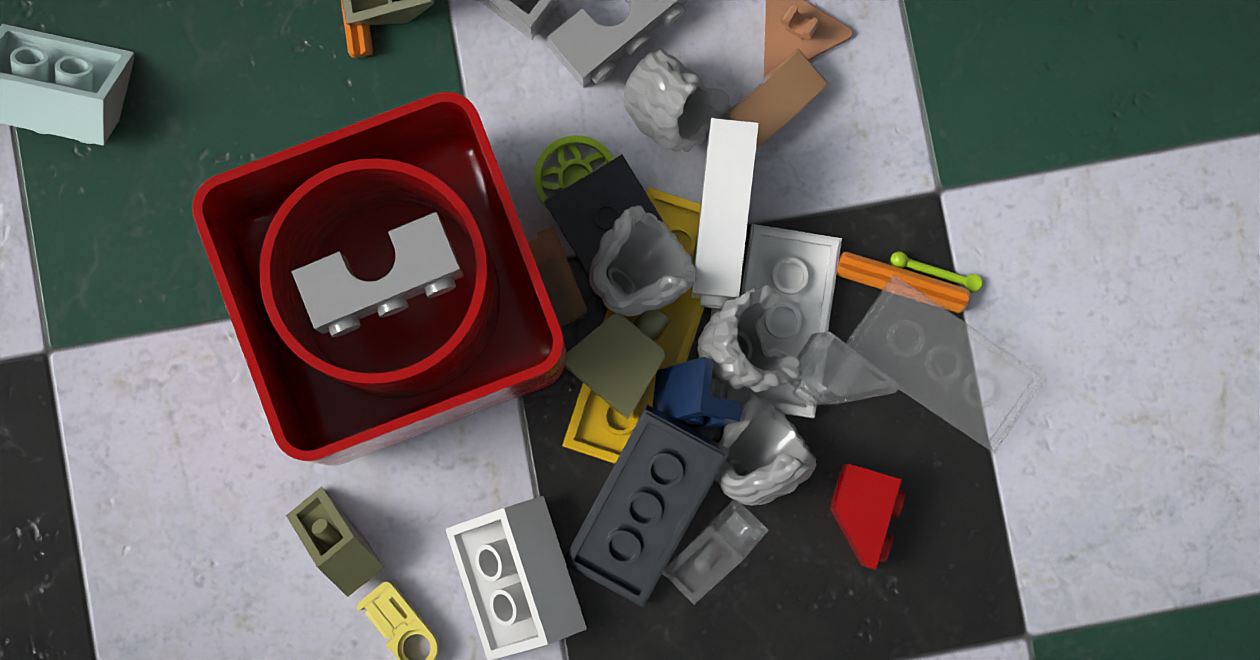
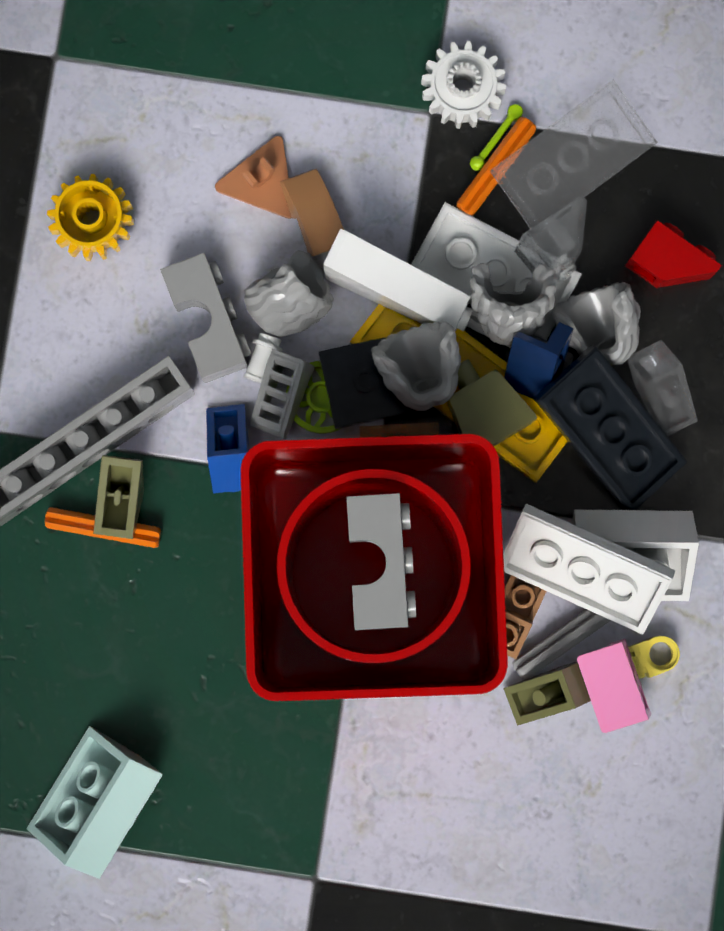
camera: 65 degrees left, 0 degrees up
(358, 605) = (614, 686): none -> bright pink panel
(398, 535) = (558, 643): none -> light grey axle
(410, 471) = (521, 605): none -> medium nougat slope
(476, 527) = (586, 569): none -> white tile
(493, 88) = (226, 446): none -> blue slope
(575, 114) = (271, 377): none -> light grey slope
(596, 98) = (260, 356): none -> white pin
(997, 196) = (468, 66): none -> white gear

